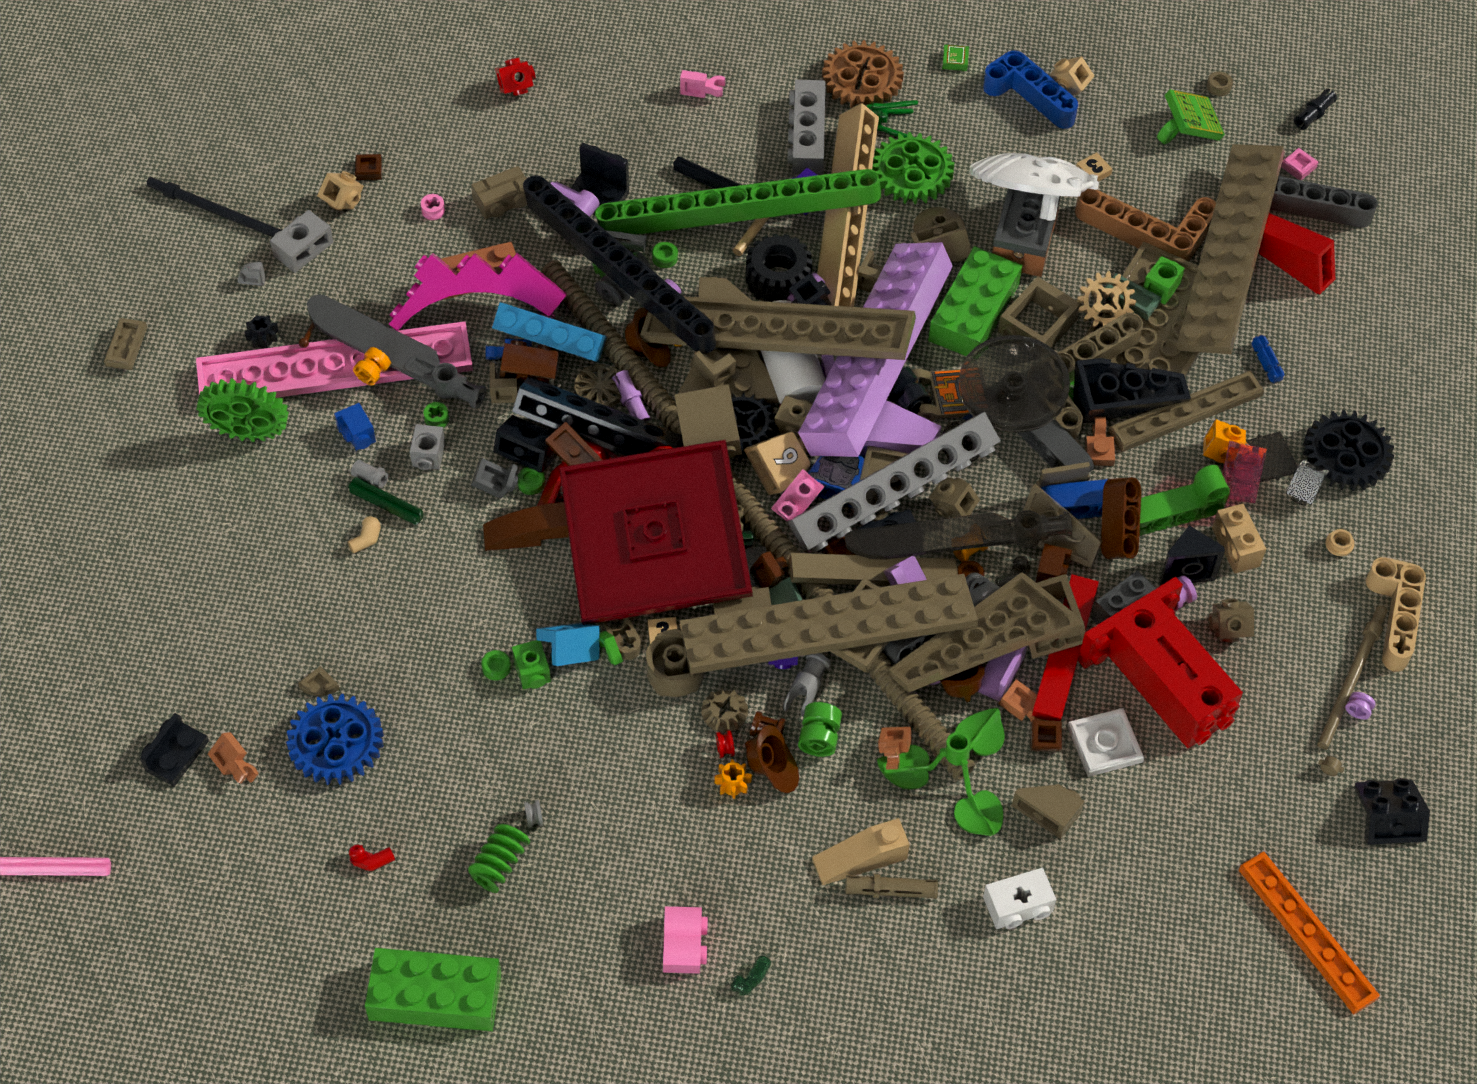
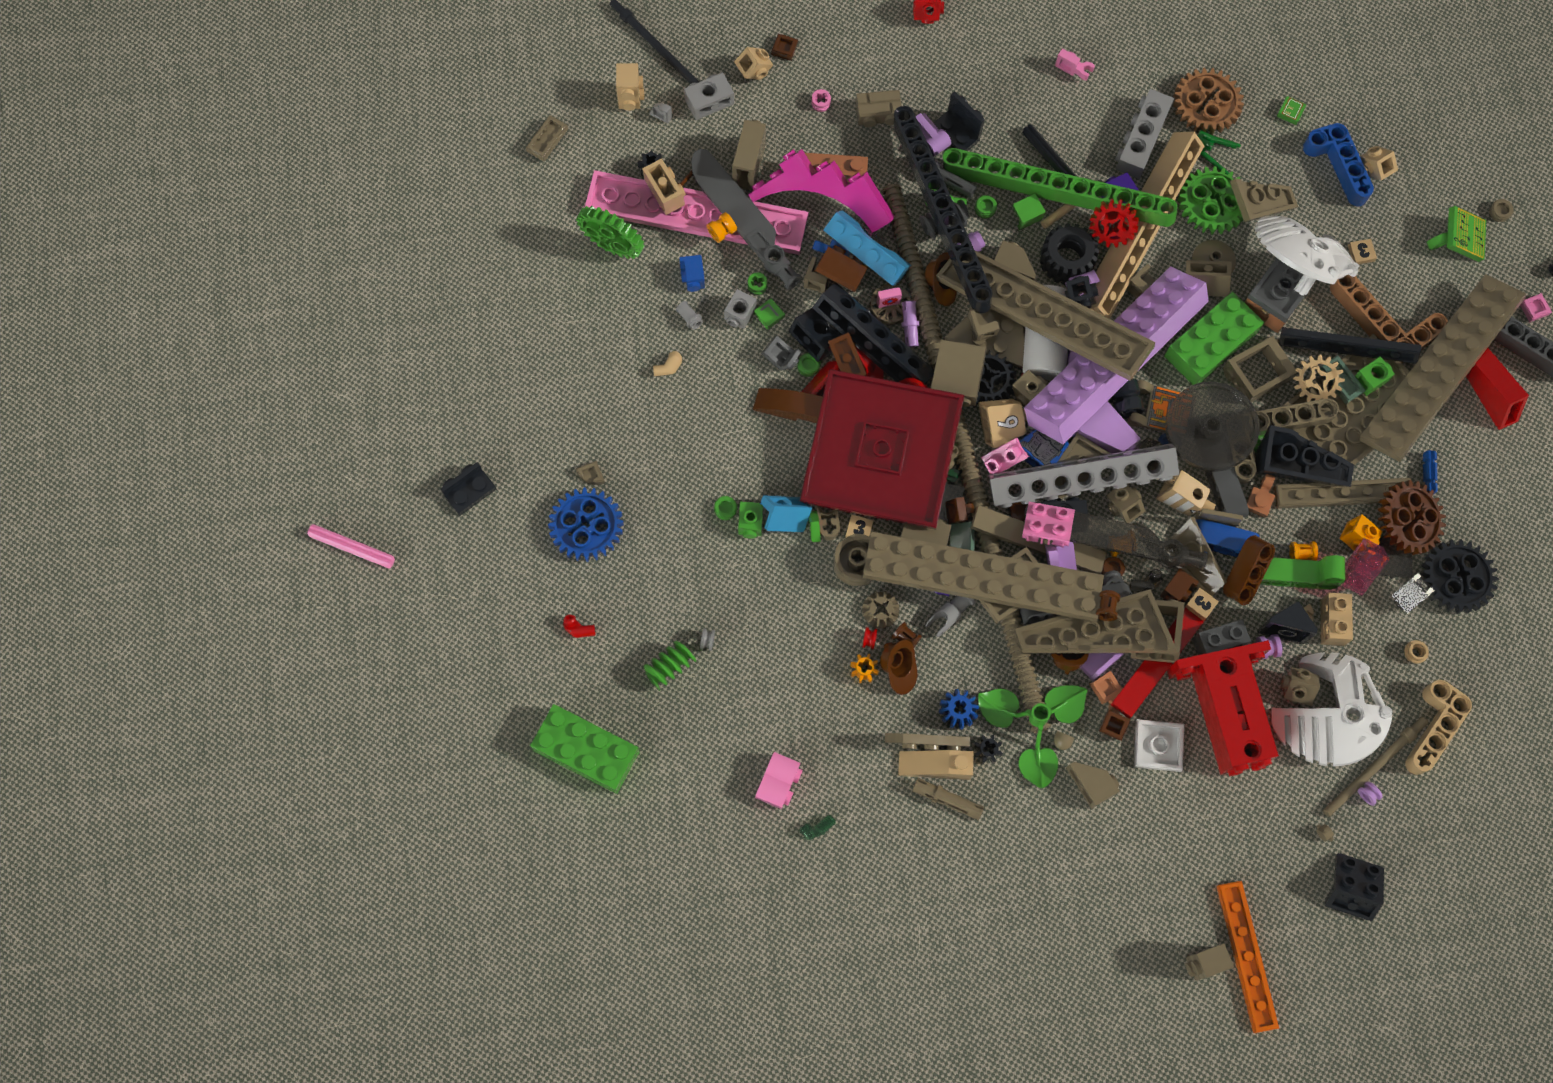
camera: 20 degrees right, 15 degrees up
(204, 257) = (629, 86): none -> tan brick
(229, 756) = (504, 510): nougat plate -> none
(287, 344) = (663, 186): none -> tan brick
(373, 281) = (749, 154): none -> dark tan brick
(386, 501) = (693, 342): dark green axle -> none
(463, 442) = (769, 313): none -> bright green tile
(595, 376) = (889, 297): none -> bright pink tile
(716, 240) = (1029, 211): none -> bright green panel
(805, 212) = (1109, 215): none -> red gear
(820, 729) = (944, 655): bright green wheel -> none
(837, 828) = (929, 741): none -> dark tan wing
(872, 781) = (959, 700): none -> blue gear
(878, 542) = (1048, 523): none -> bright pink hinge
(894, 742) = (996, 685): nougat plate -> none
(914, 814) = (989, 743): none -> black gear
(963, 149) = (1262, 200): none -> dark tan wing
(983, 603) = (1108, 605): none -> reddish brown bush
(995, 774) = (1063, 741): none -> dark tan hinge
(1014, 466) = (1185, 494): none -> tan torso
(1027, 887) = (1052, 841): white brick -> none
(1085, 574) = (1201, 604): none -> tan tile
(1123, 258) = (1350, 345): none -> black tile
(1170, 481) = (1303, 551): none -> light orange bush
(1253, 401) = (1411, 517): none -> reddish brown gear
(1268, 948) = (1208, 962): none -> dark tan brick
(1285, 654) = (1327, 732): none -> white piece

